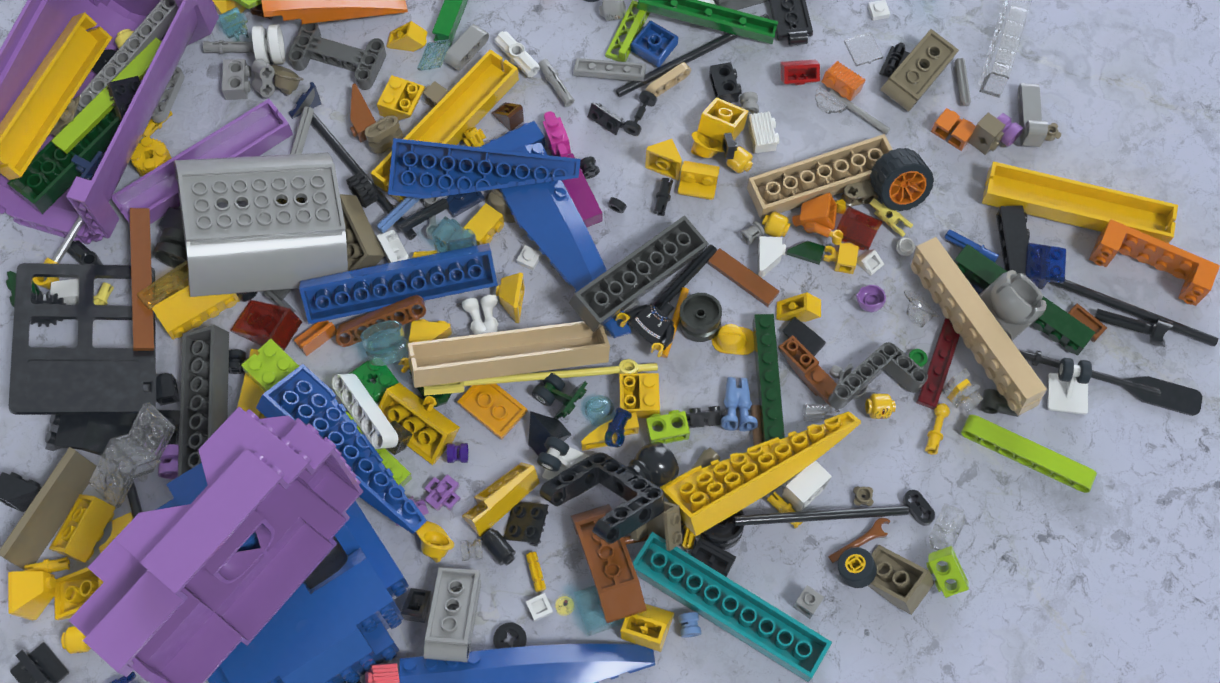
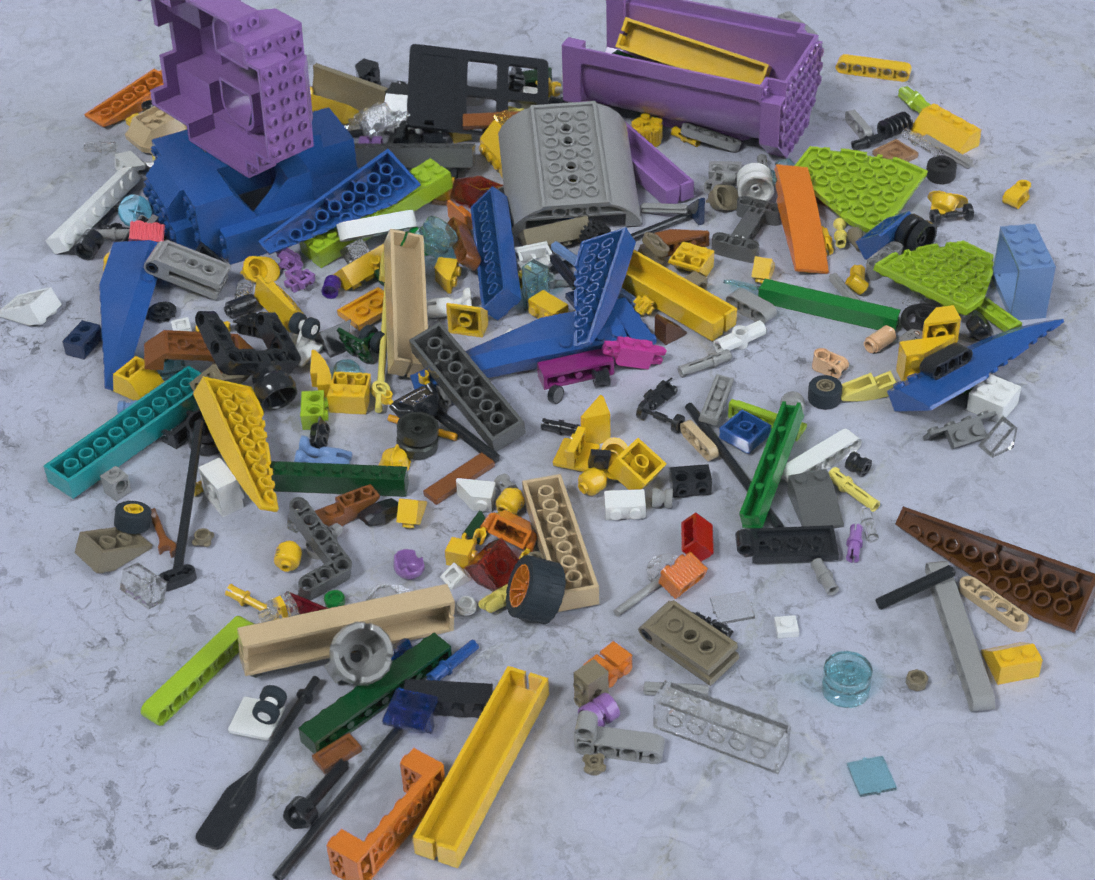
camera: 100 degrees right, 25 degrees down
(617, 426) = (316, 360): clear blue connector -> none
(706, 457) = (275, 434): dark tan cone -> none
(952, 570) = (99, 575): lime brick -> none

